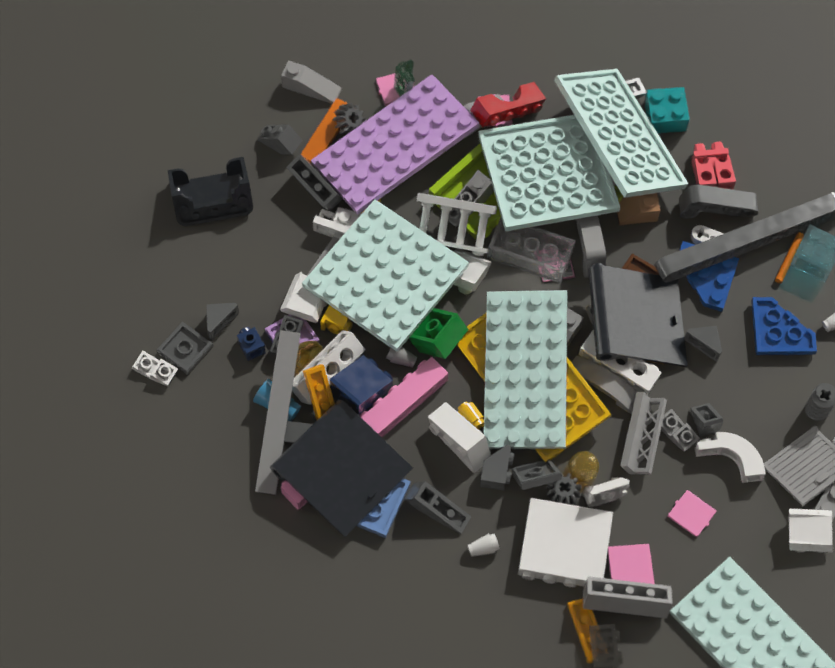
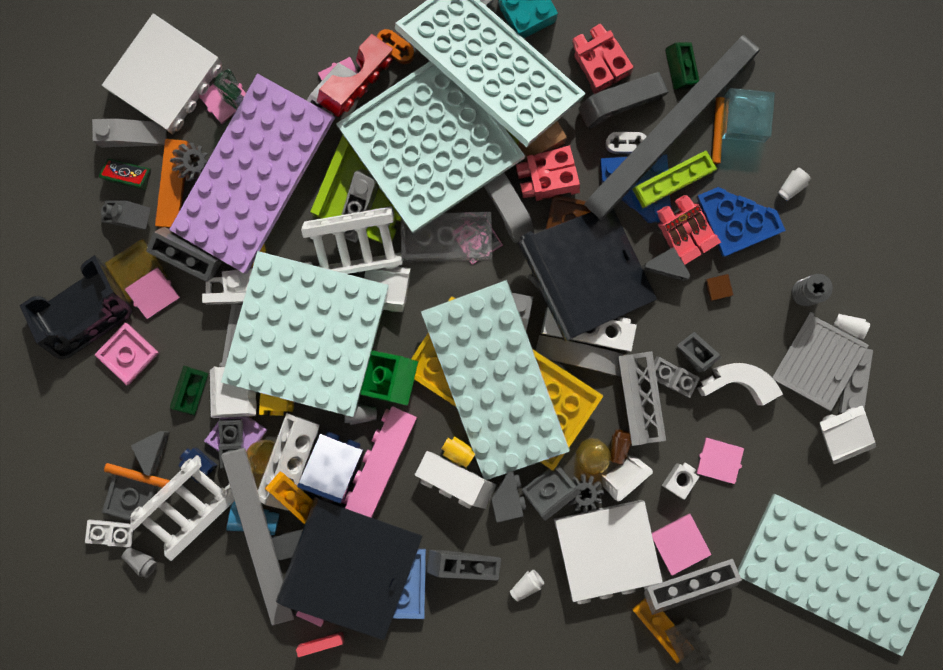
camera: 20 degrees left, 20 degrees up
(170, 400) = (141, 563): none -> light grey cone
(200, 332) = (135, 475): none -> orange bar
(223, 386) = (189, 528): none -> white fence
(232, 241) = (126, 353): none -> bright pink tile
(269, 183) = (132, 265): none -> clear yellow tile
(269, 287) = (188, 390): none -> dark green slope
(274, 203) = (152, 293): none -> bright pink piece
(289, 521) = (320, 644): none -> coral tile
(292, 112) = (125, 174): none -> slope
(356, 51) = (163, 74): none -> white panel
(552, 99) = (398, 43): none -> orange beam
(610, 465) = (620, 446): none -> reddish brown cone
(635, 235) = (550, 174): none -> coral hips
(646, 519) = (672, 485): none -> white brick
(733, 318) = (687, 229): none -> coral hips
(737, 277) = (674, 179): none -> lime tile
(744, 376) = (719, 287): none -> reddish brown tile
(778, 197) = (682, 65): none -> dark green slope

